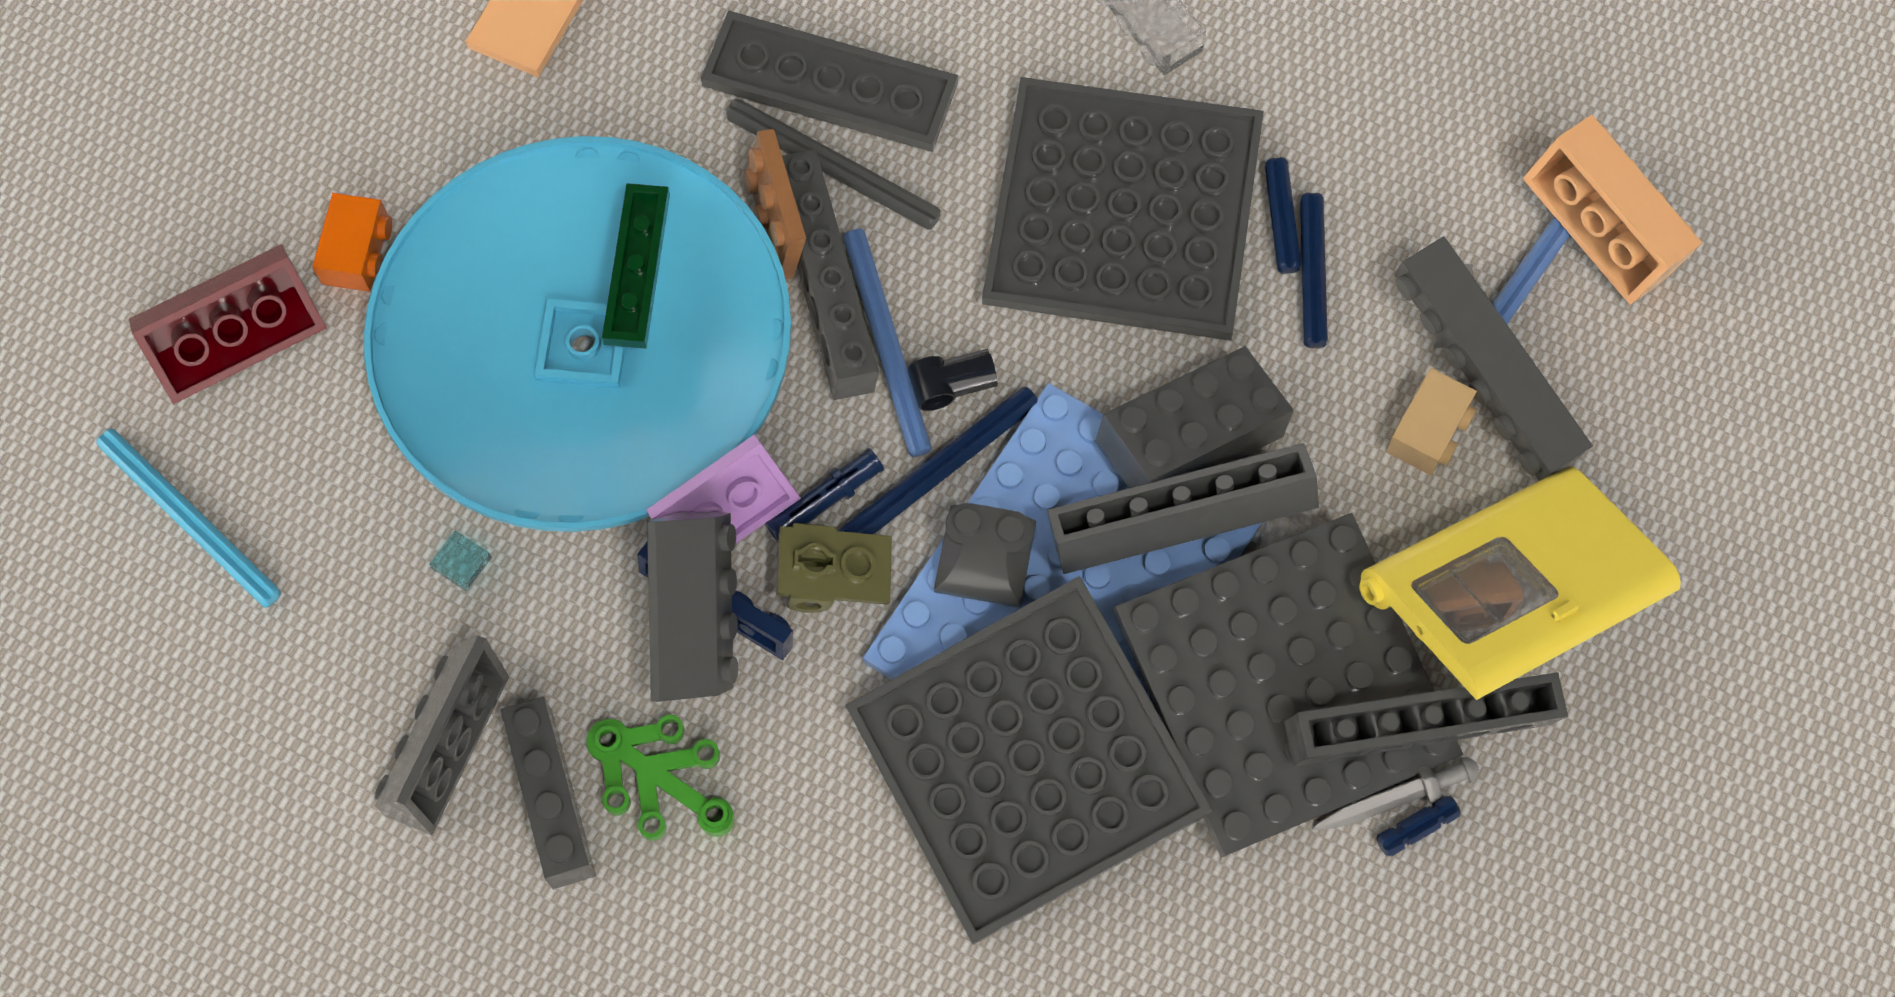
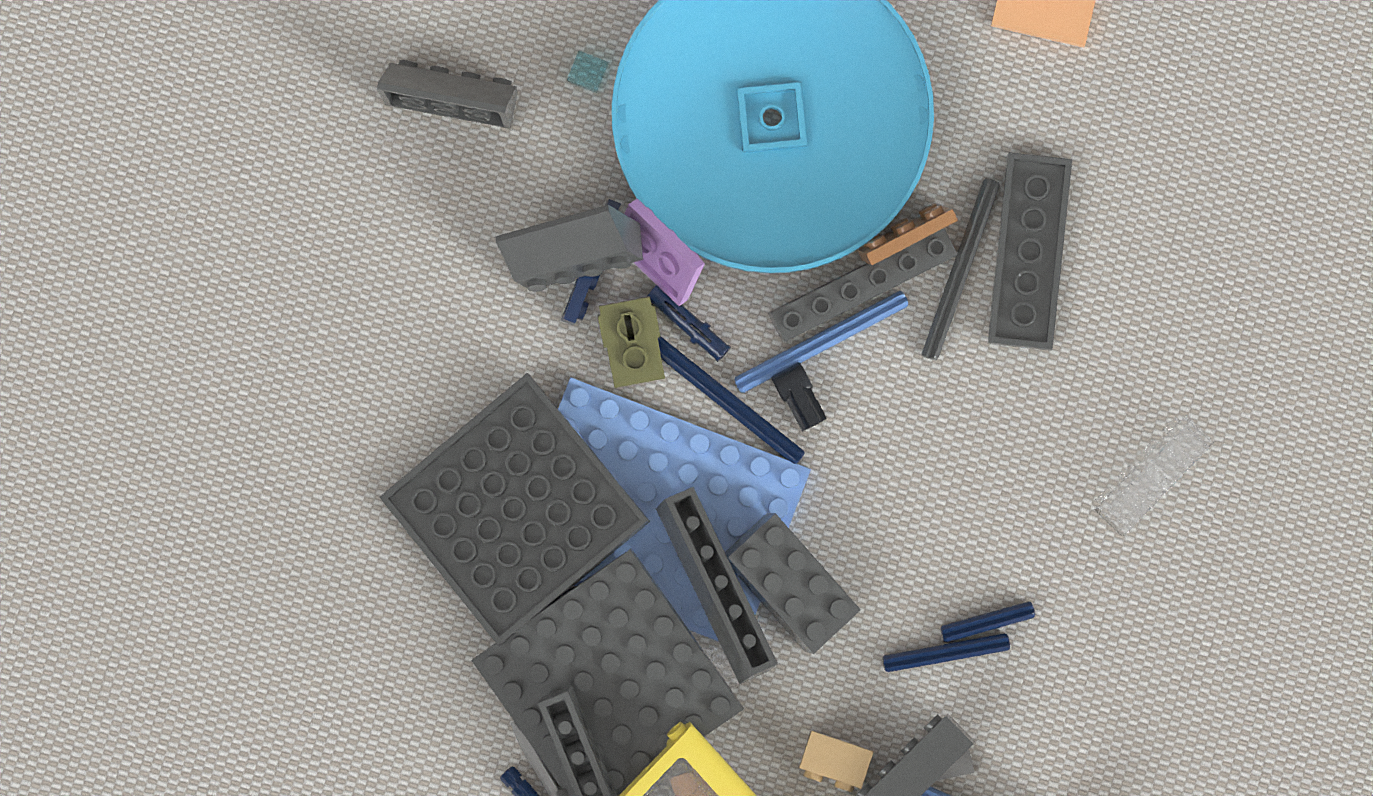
camera: 80 degrees right, 15 degrees up
(548, 793) = (426, 179): dark grey brick -> none
(636, 266) = (826, 144): dark green plate -> none
(653, 772) = (458, 248): bright green plant -> none
(985, 554) = (660, 449): dark grey slope -> none
(1124, 208) = (968, 499): dark grey plate -> none

